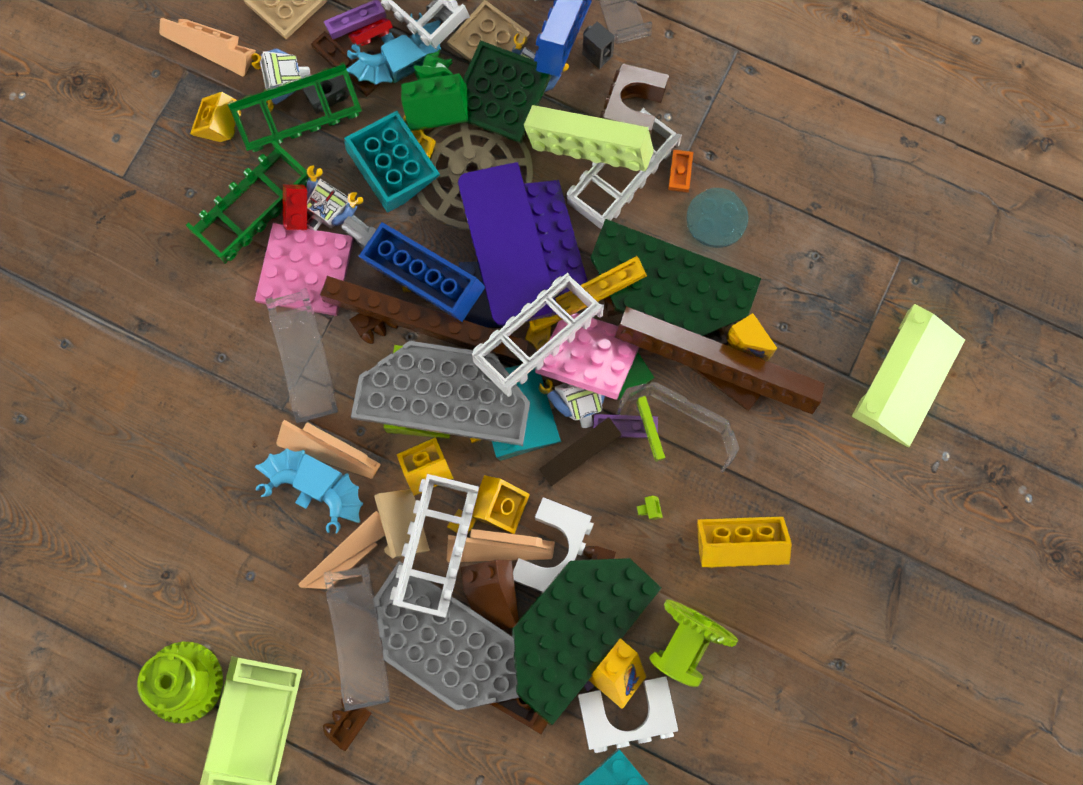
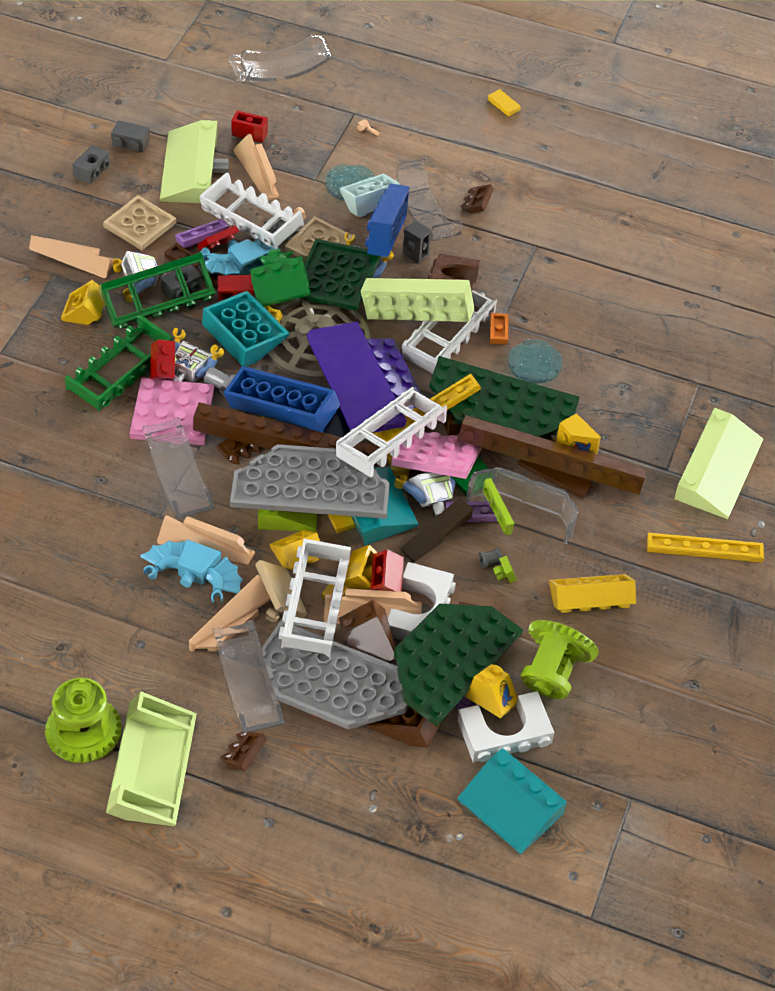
camera: 10 degrees left, 25 degrees down
(383, 101) = (233, 285): none -> red brick
(518, 512) = (387, 571): none -> brick
(635, 490) = (490, 558): none -> dark grey bush
(878, 486) = (705, 547): none -> yellow tile

